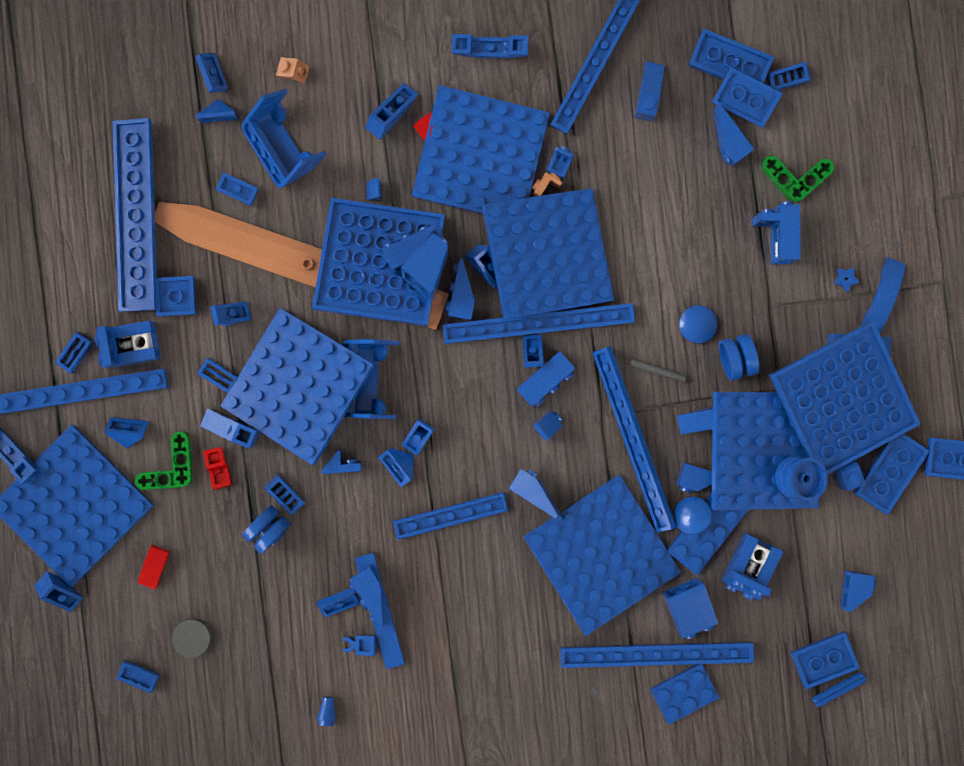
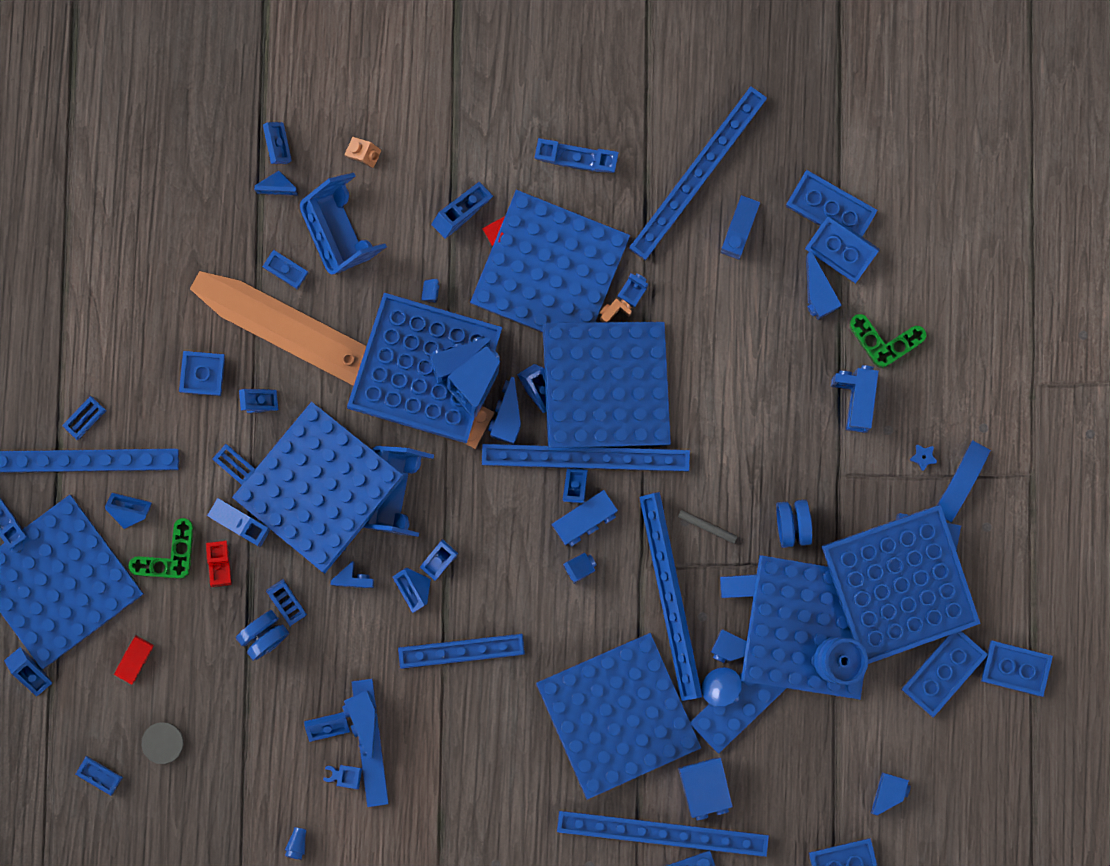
camera: 15 degrees right, 5 degrees down
(111, 346) = (125, 417): blue brick -> none
(135, 215) = (172, 281): blue plate -> none
(534, 491) = (554, 634): slope -> none
(698, 324) = (757, 483): blue dish -> none
(738, 580) = (761, 764): blue brick -> none
(805, 73) = (909, 229): blue slope -> none
(849, 476) = (897, 668): blue slope -> none

